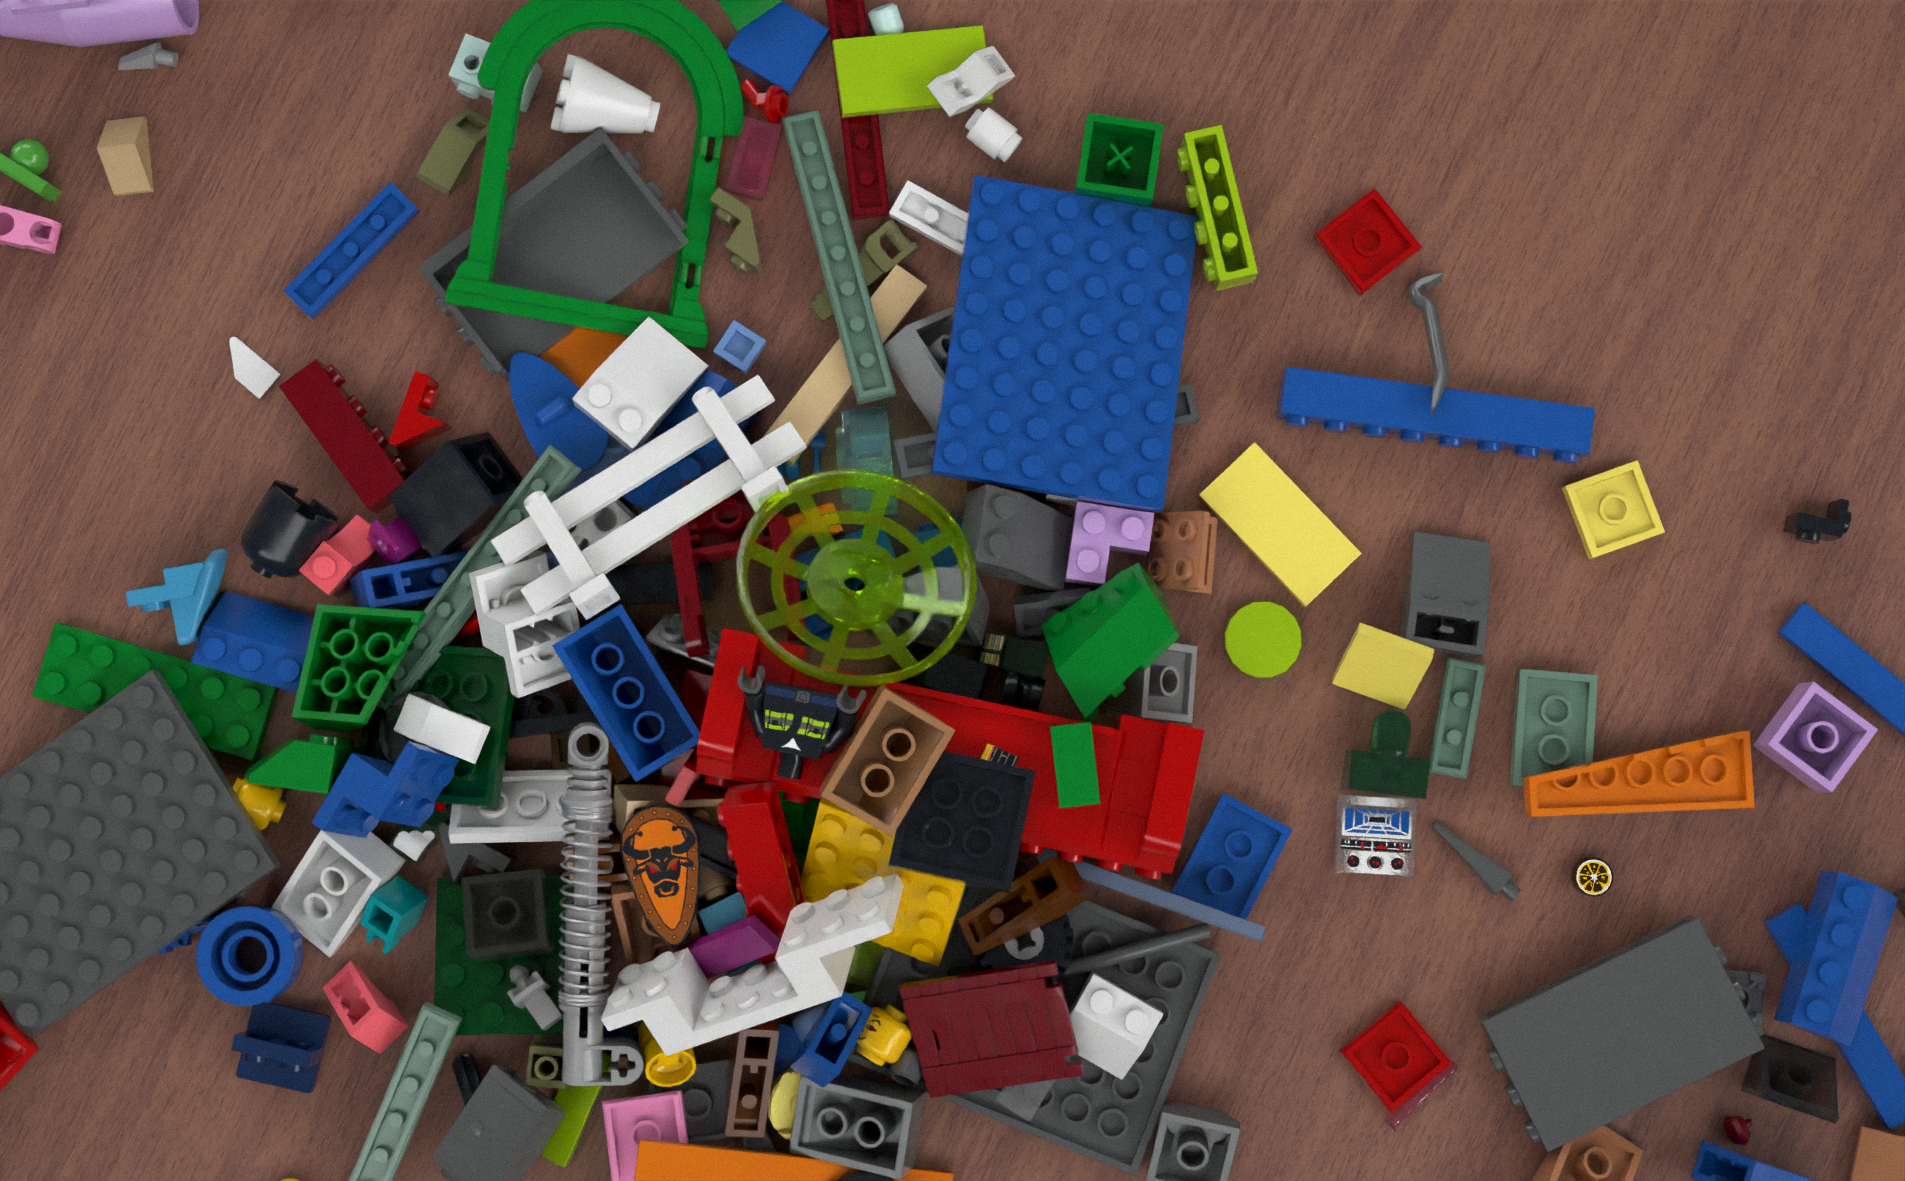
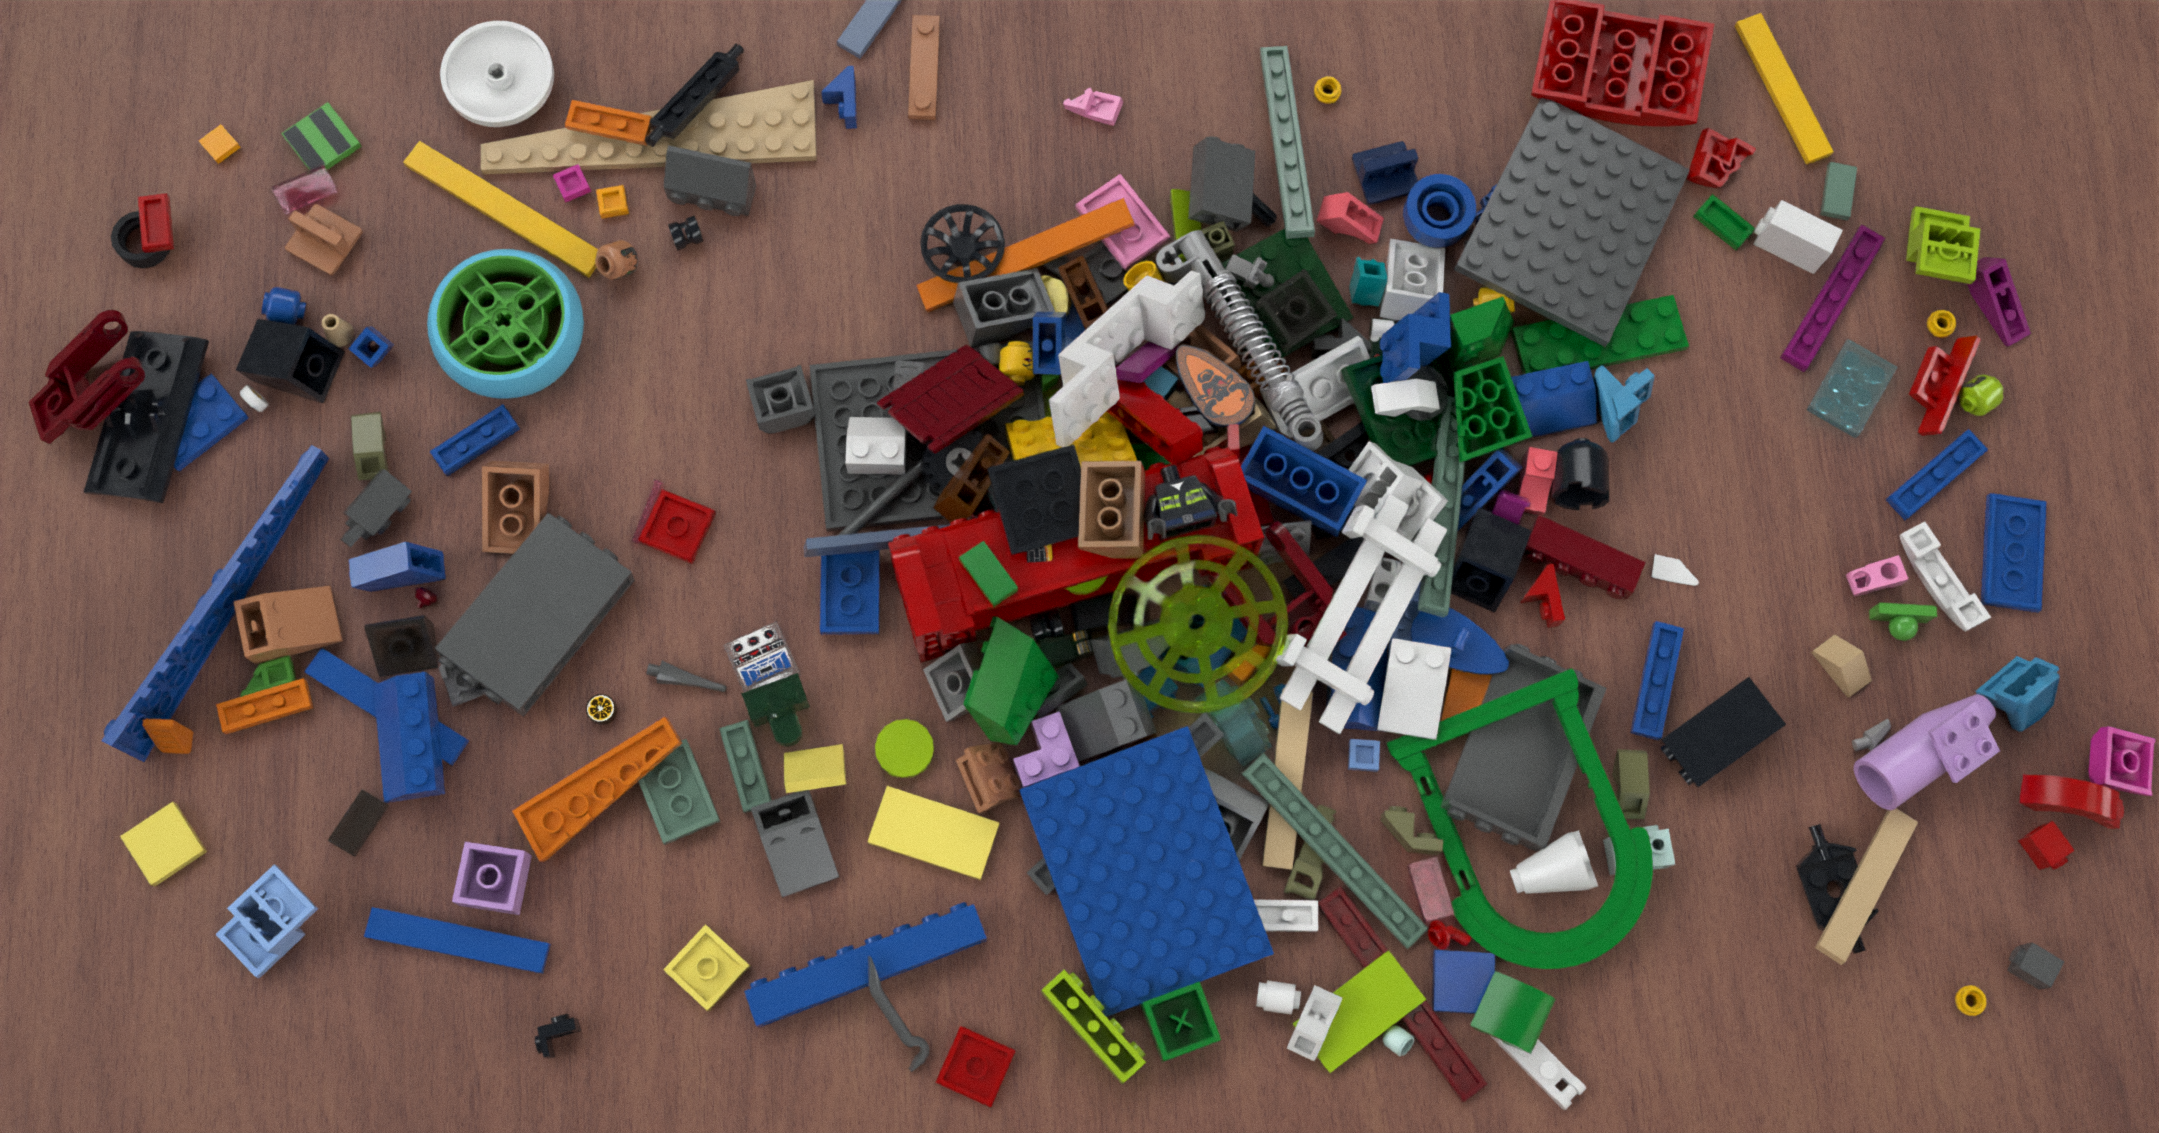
camera: 140 degrees right, 10 degrees down
(317, 149) = (1722, 733): none -> black slope

